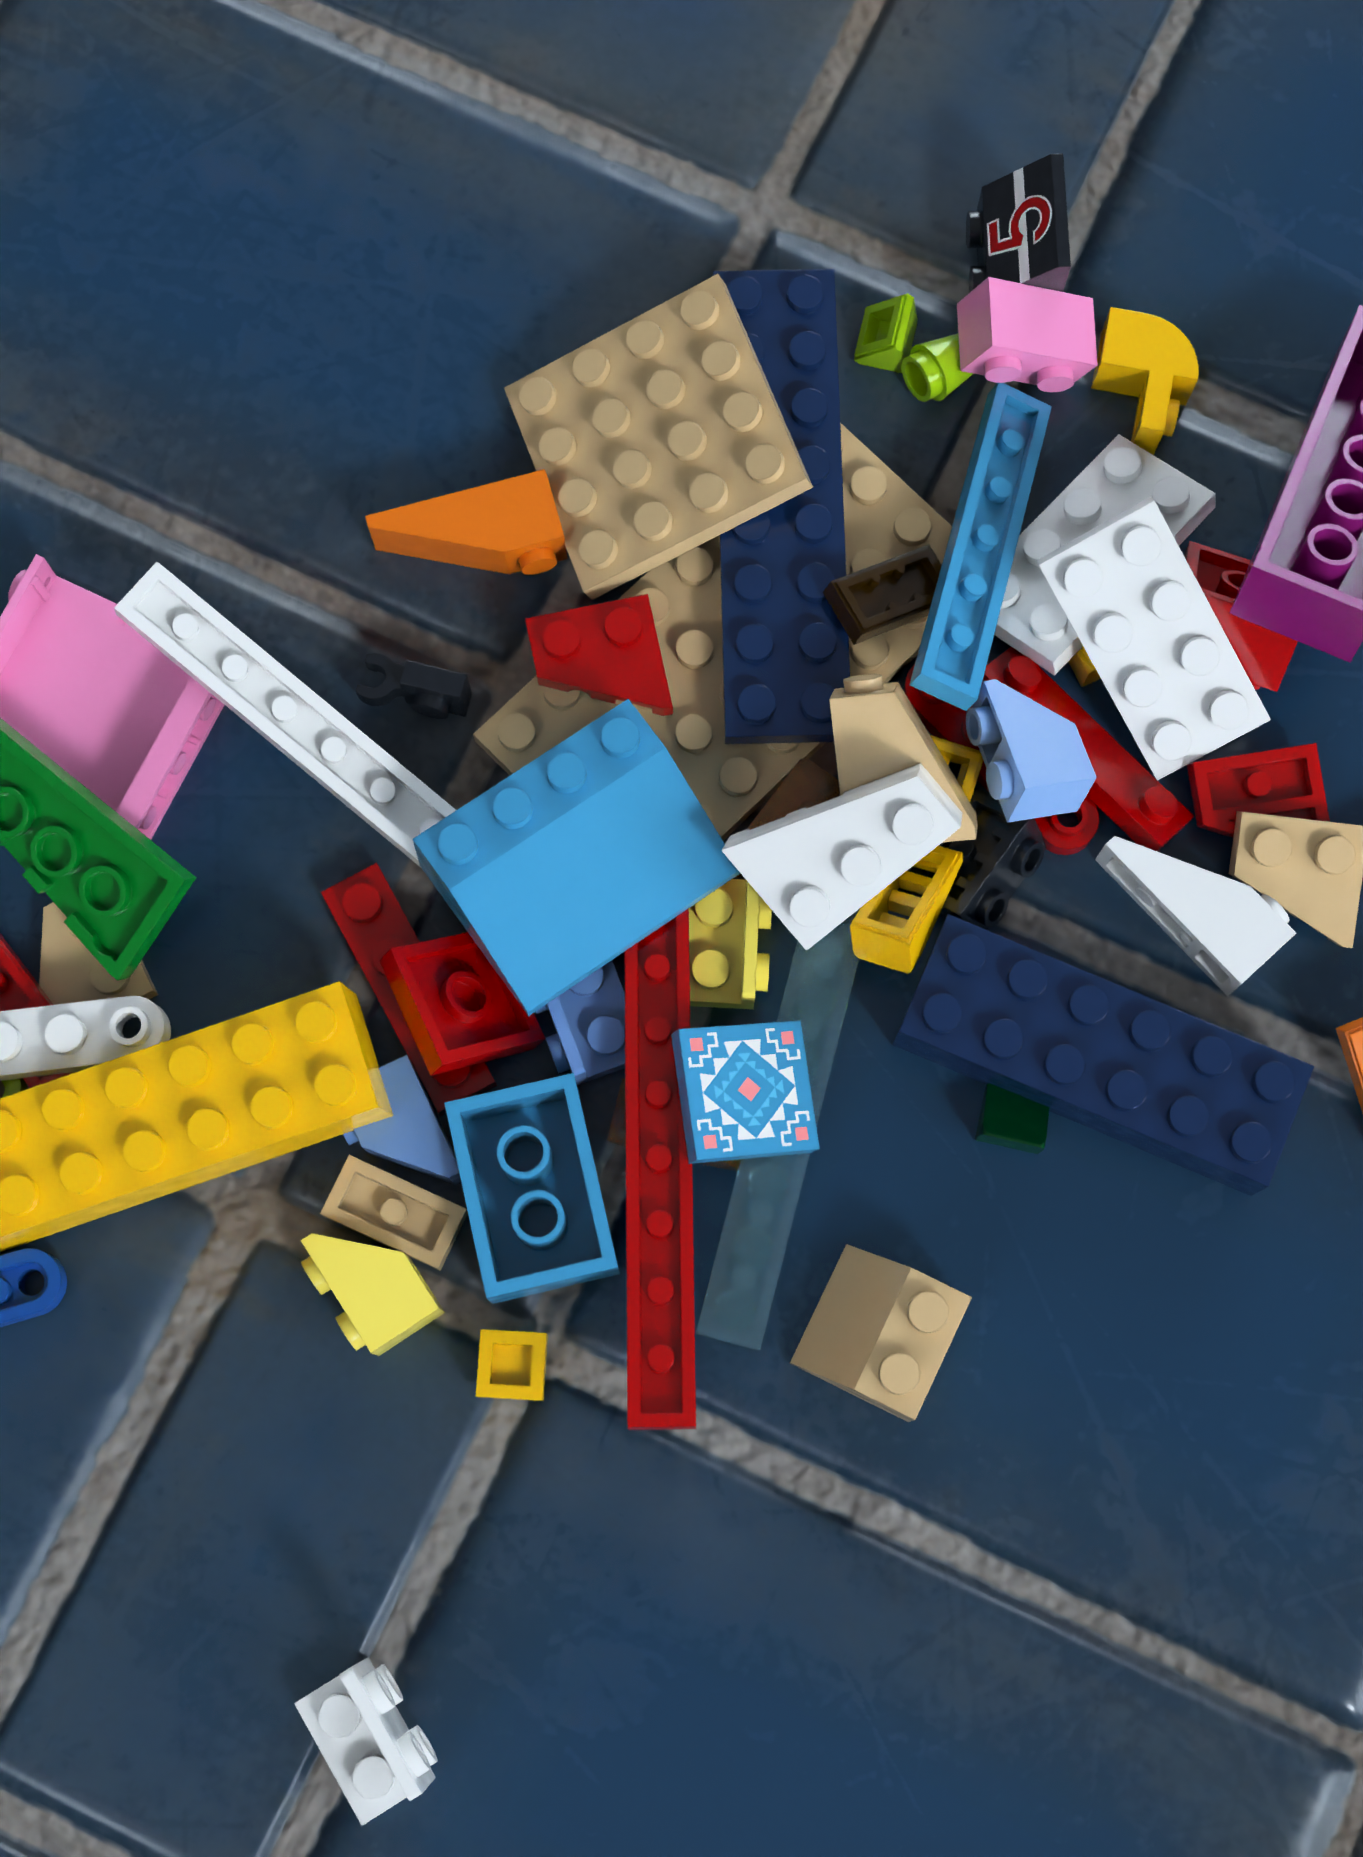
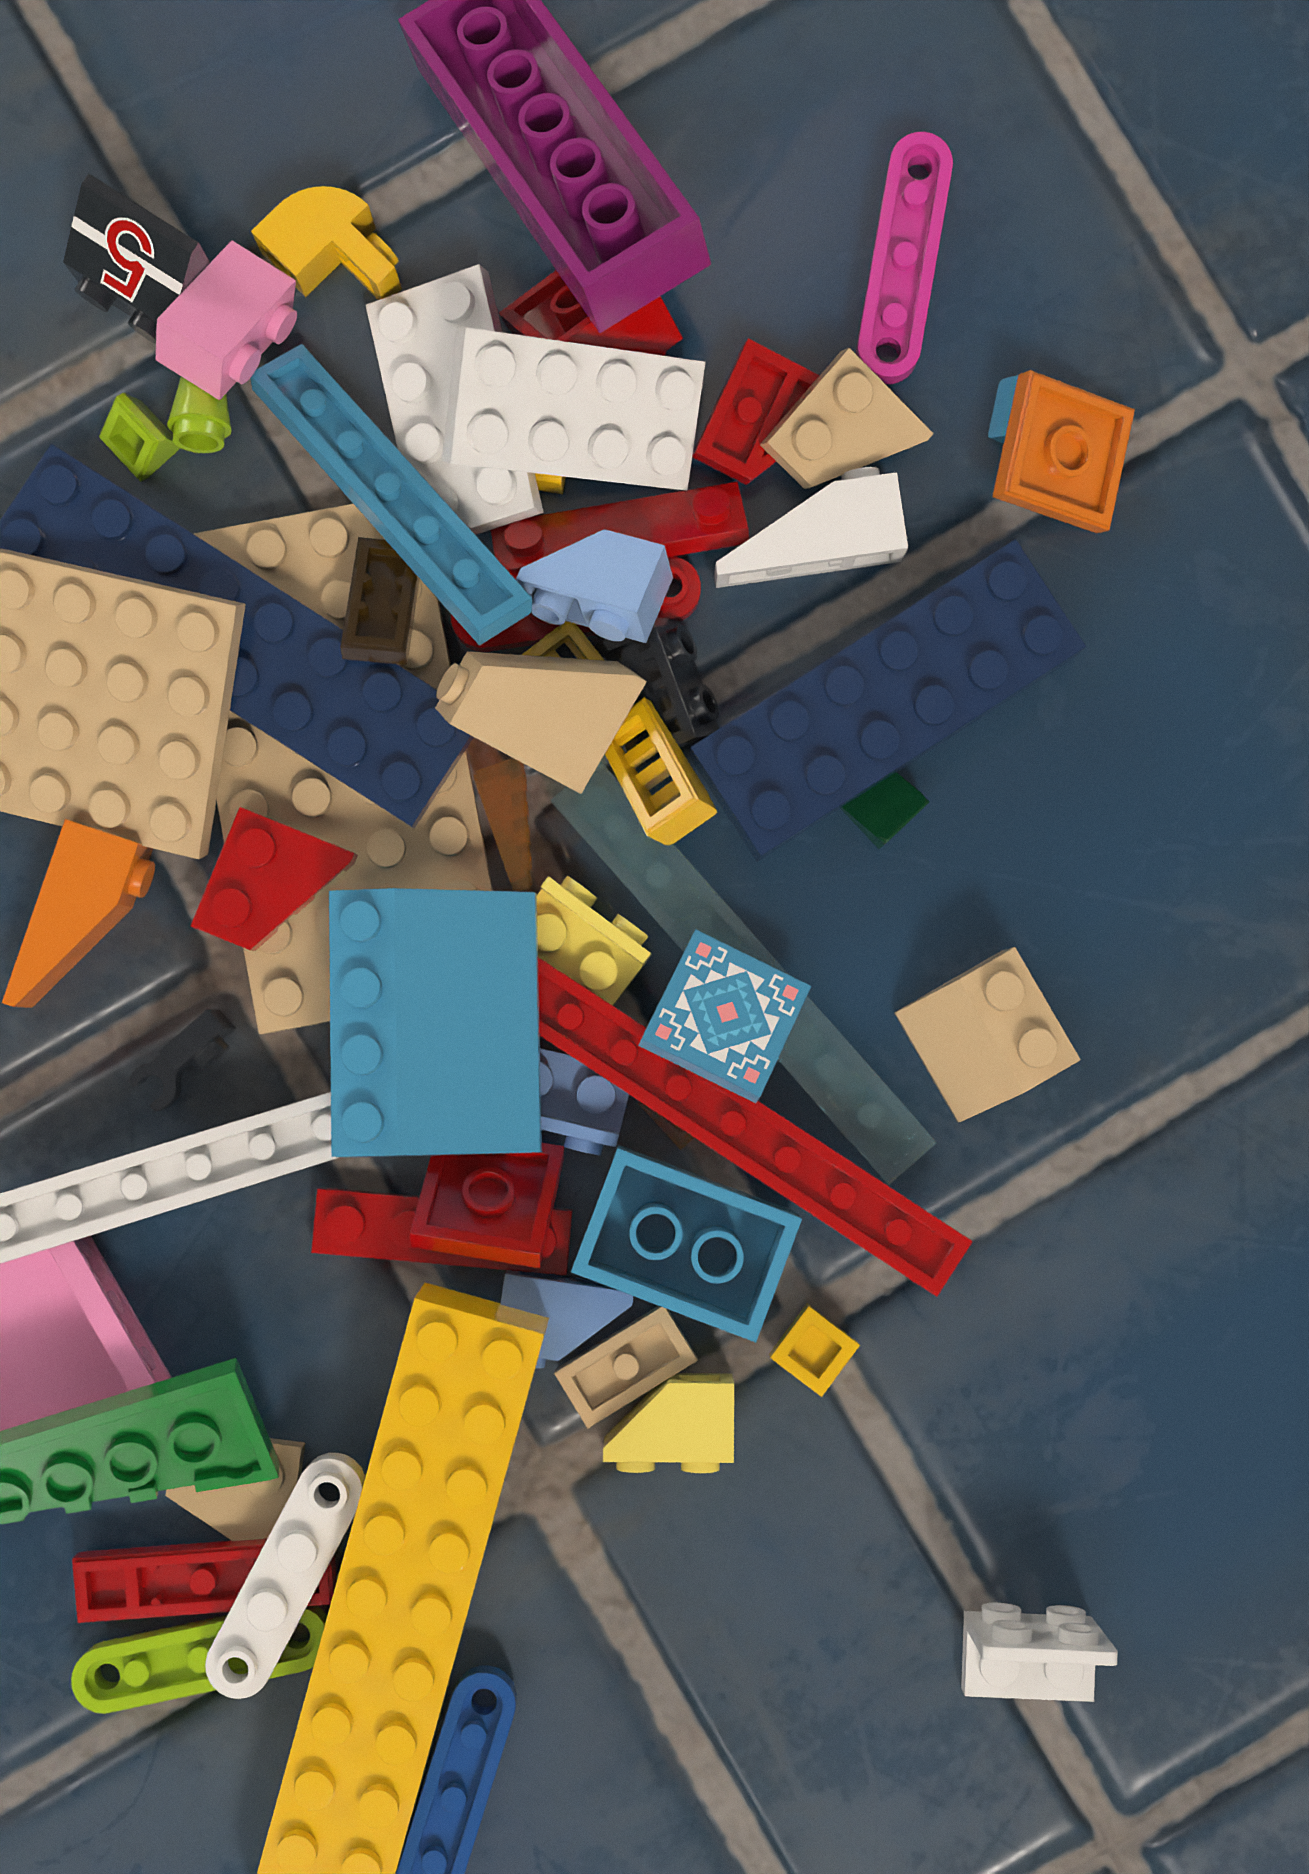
camera: 60 degrees left, 10 degrees up
(844, 851) = (585, 800): white wedge -> none

